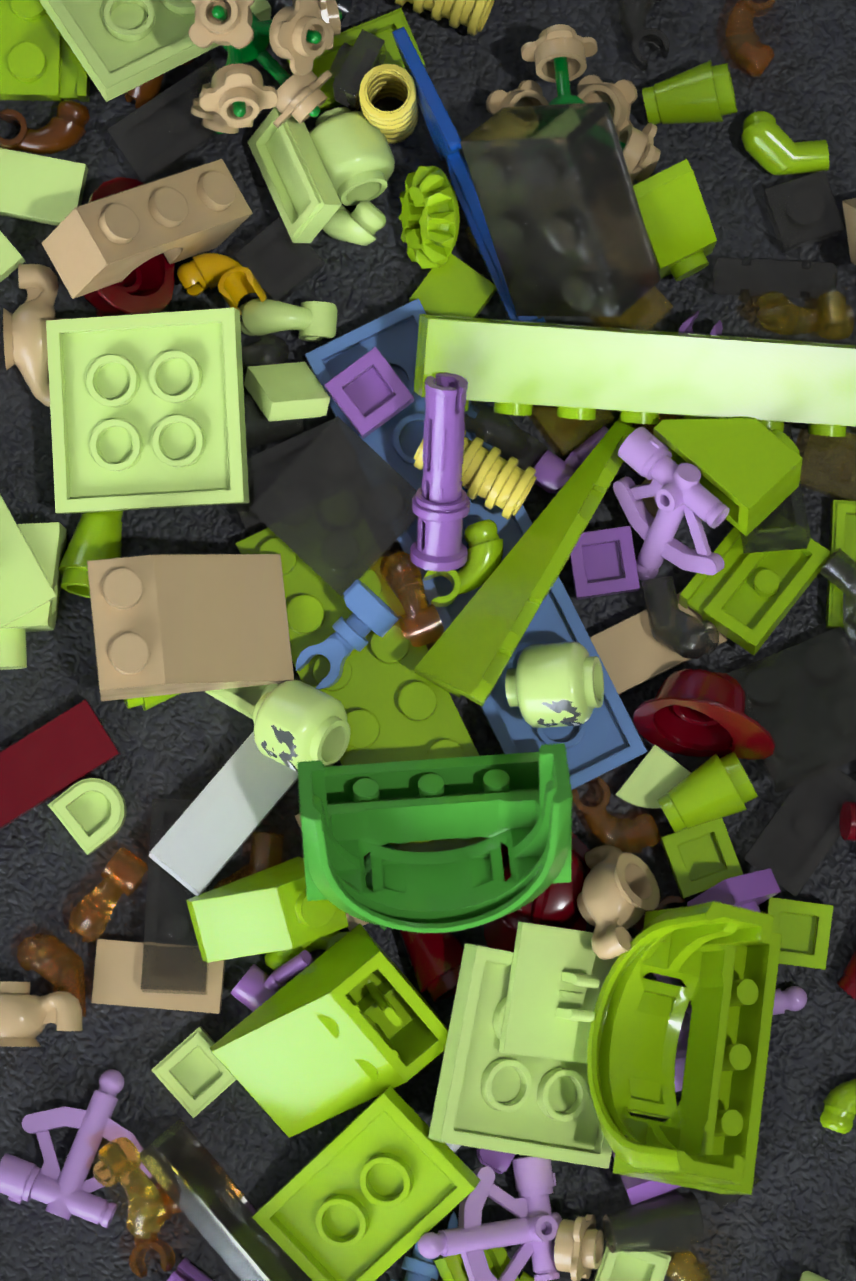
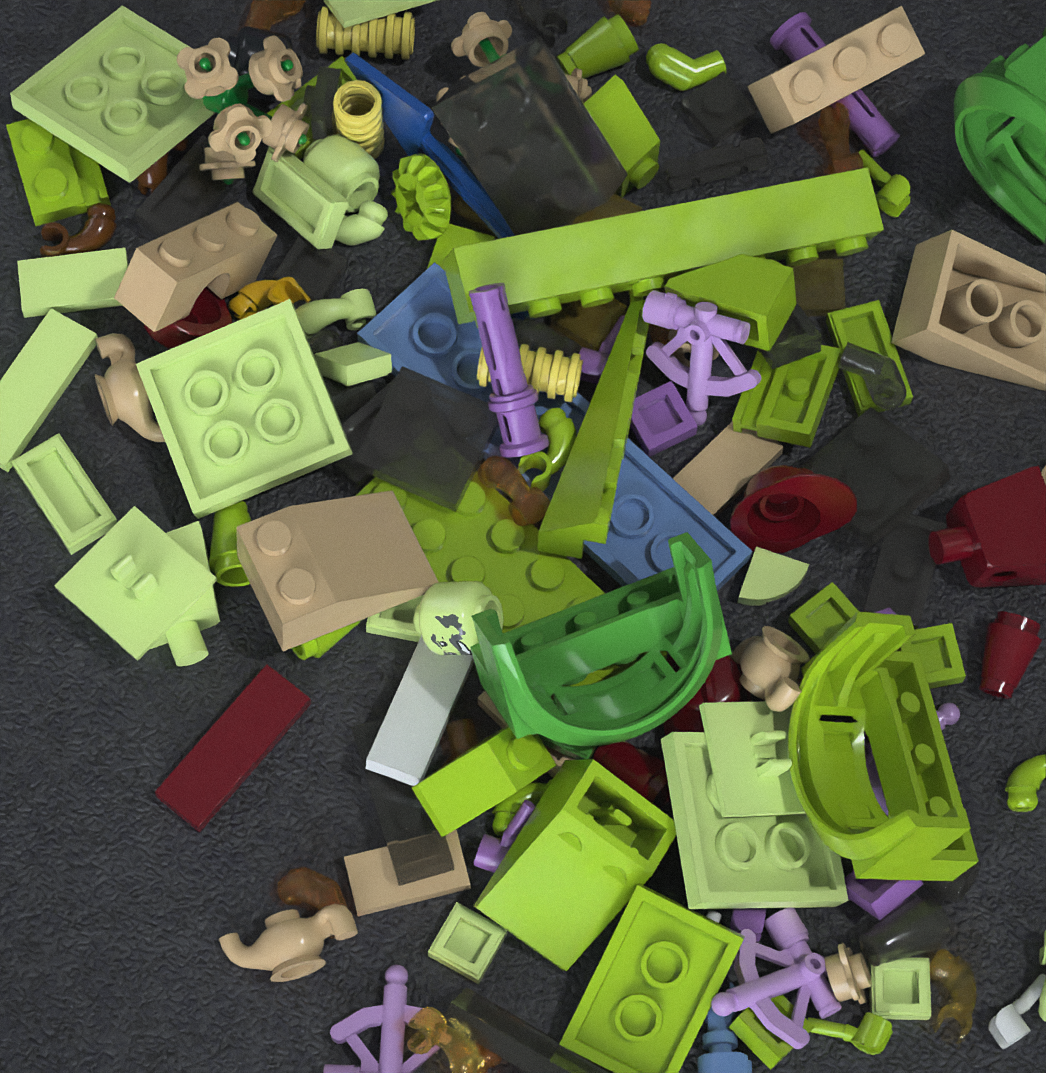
camera: 25 degrees left, 15 degrees down
(91, 812) = (301, 757): yellowish green tile -> none
(93, 912) = (333, 833): clear orange arm -> none
(350, 633) = (482, 511): medium blue piece -> none
(369, 392) = (422, 340): medium lavender plate -> none
(555, 684) = (656, 513): yellowish green head -> none
(624, 833) = (744, 627): clear orange arm -> none
(674, 627) = (737, 445): clear smoke arm -> none
(708, 793) = (816, 564): lime cone -> none
(831, 318) = (768, 171): clear yellow arm -> none

